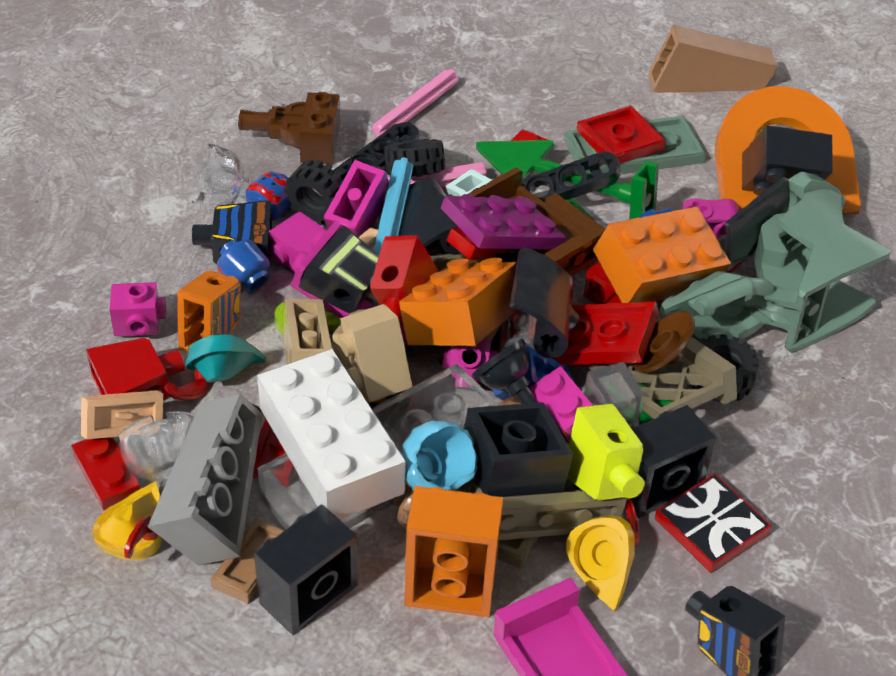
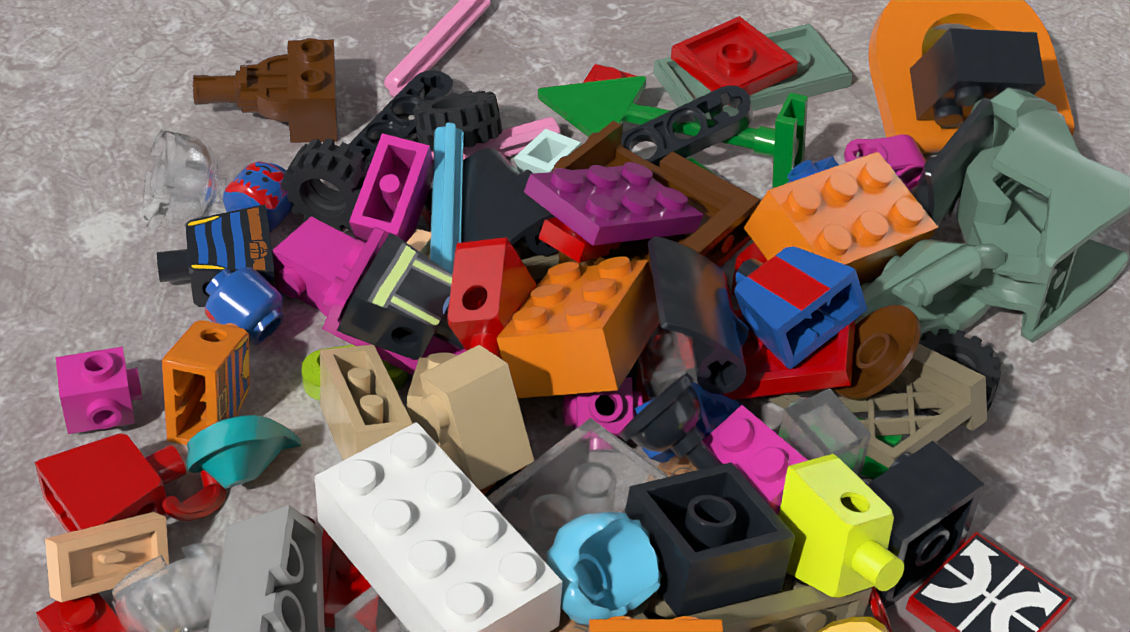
camera: 10 degrees left, 0 degrees up
(615, 301) = (797, 301): none -> blue torso

